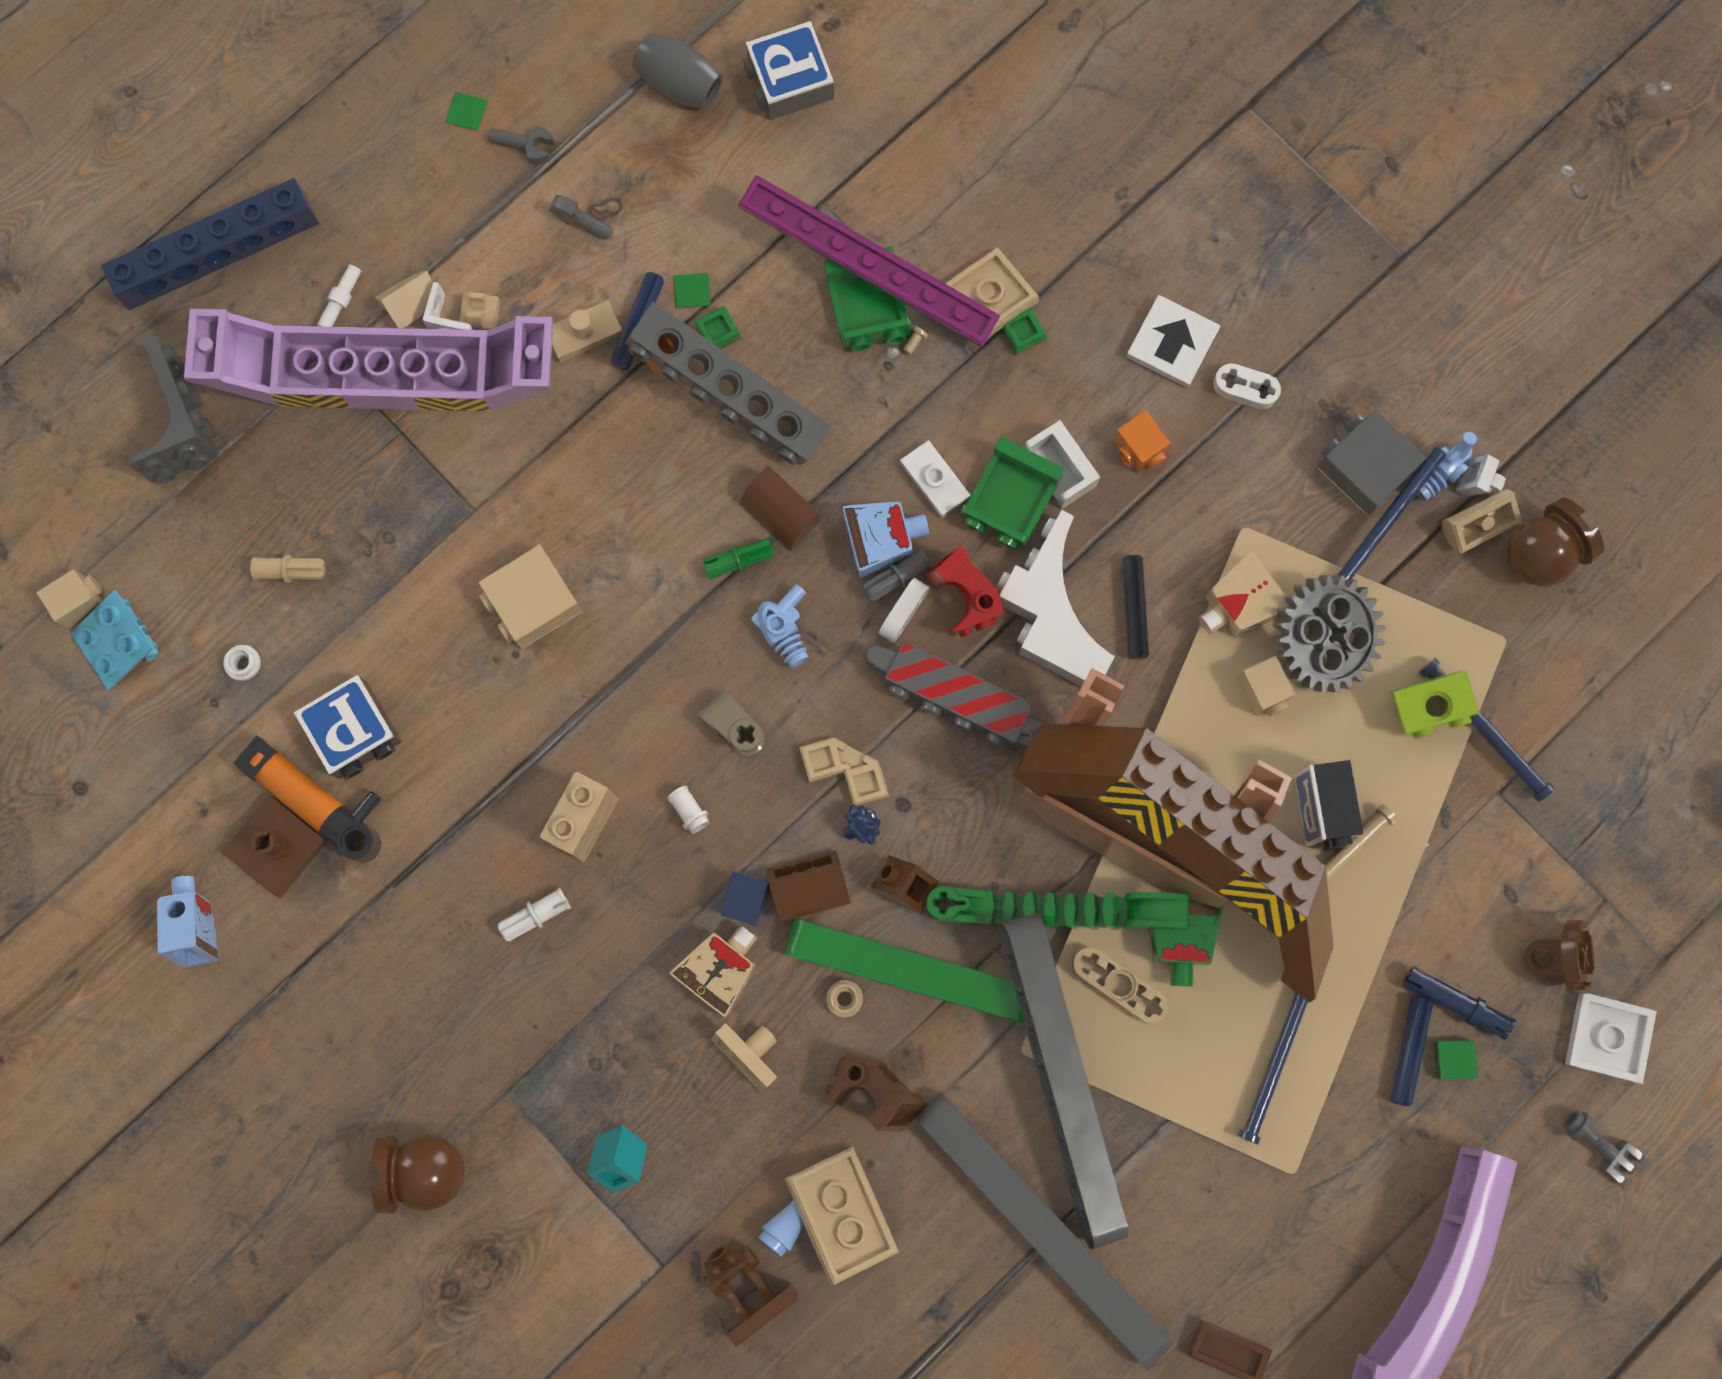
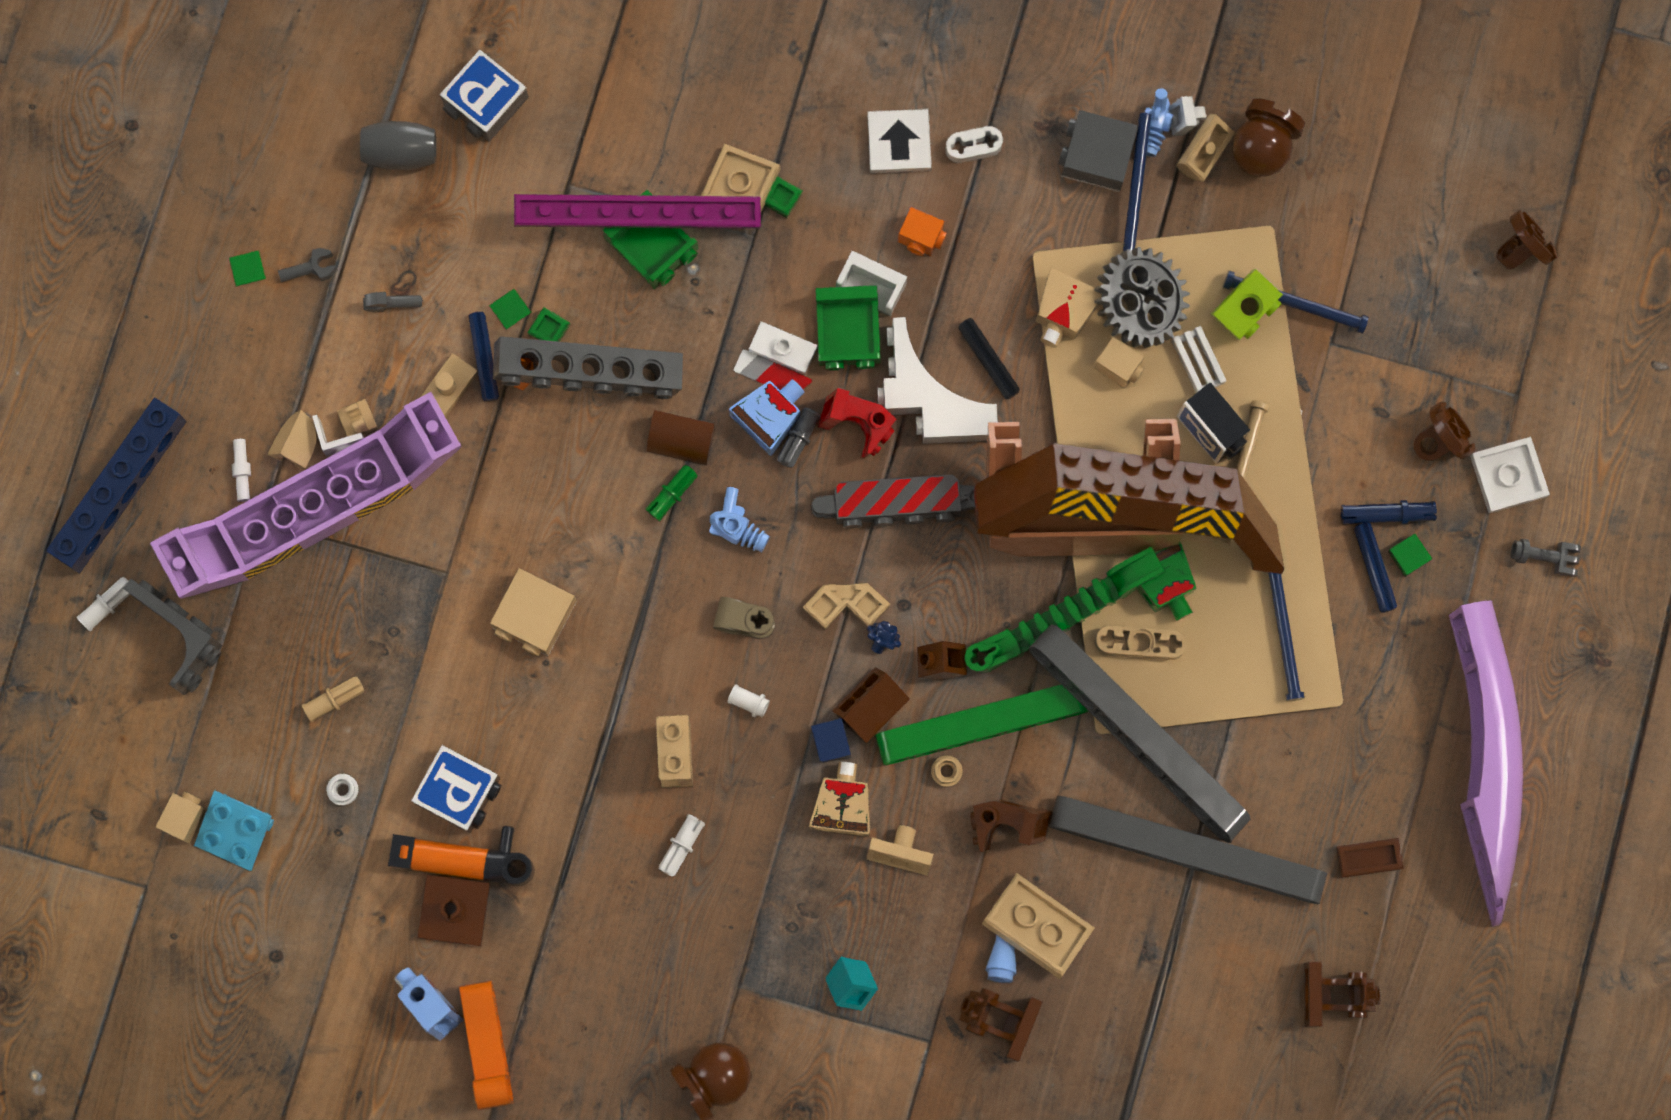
camera: 35 degrees left, 0 degrees up
(123, 353) = (104, 604): none -> white axle
(217, 1005) = (486, 1046): none -> orange beam
(903, 490) = (766, 370): none -> sticker
(903, 610) = (819, 460): white beam -> none
(914, 340) = (704, 250): tan piece -> none
(1365, 726) = (1188, 336): none -> white tile

